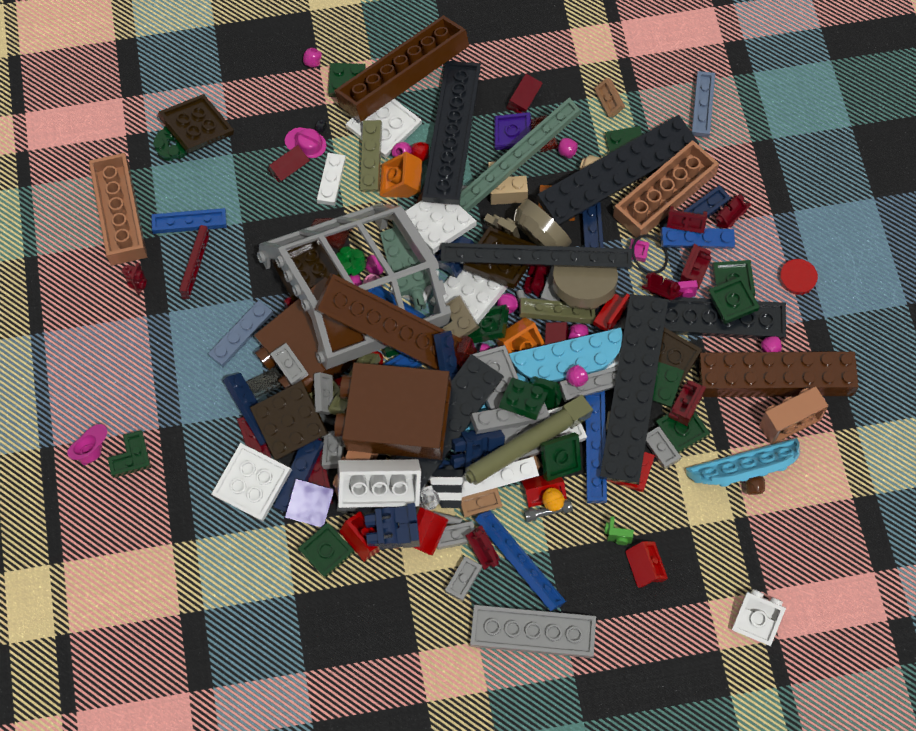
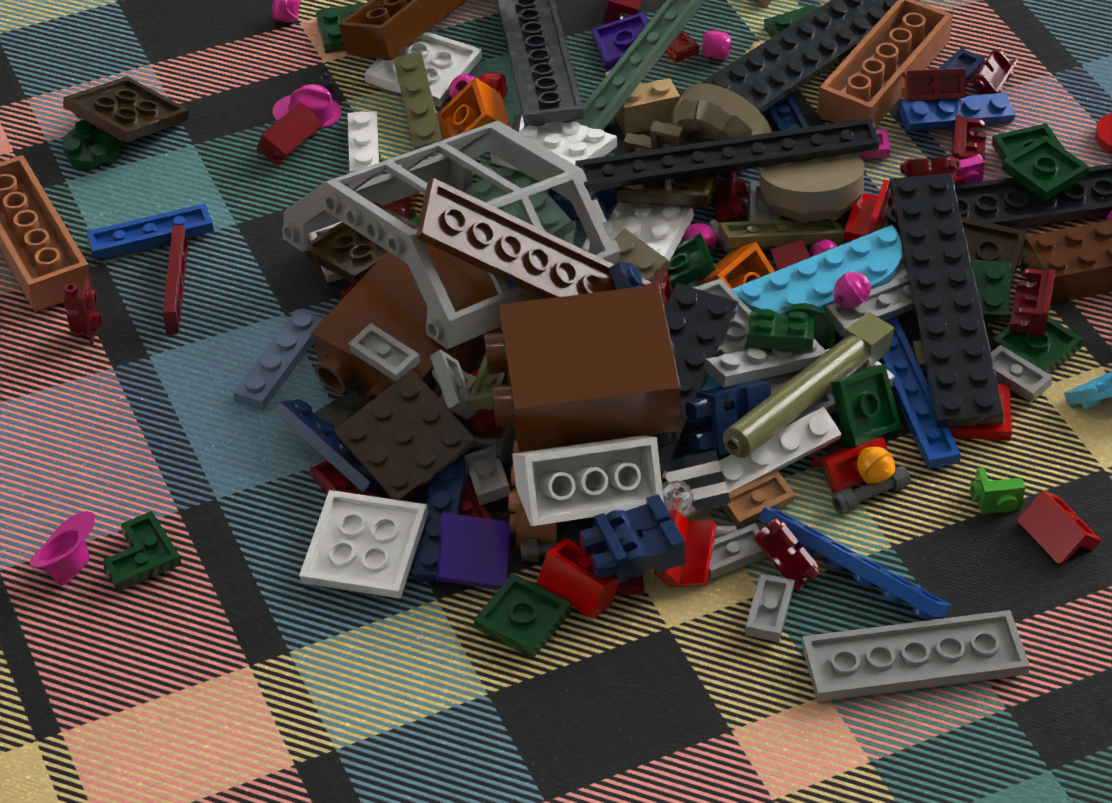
camera: 15 degrees left, 20 degrees down
(634, 258) = (883, 156): black piece -> none

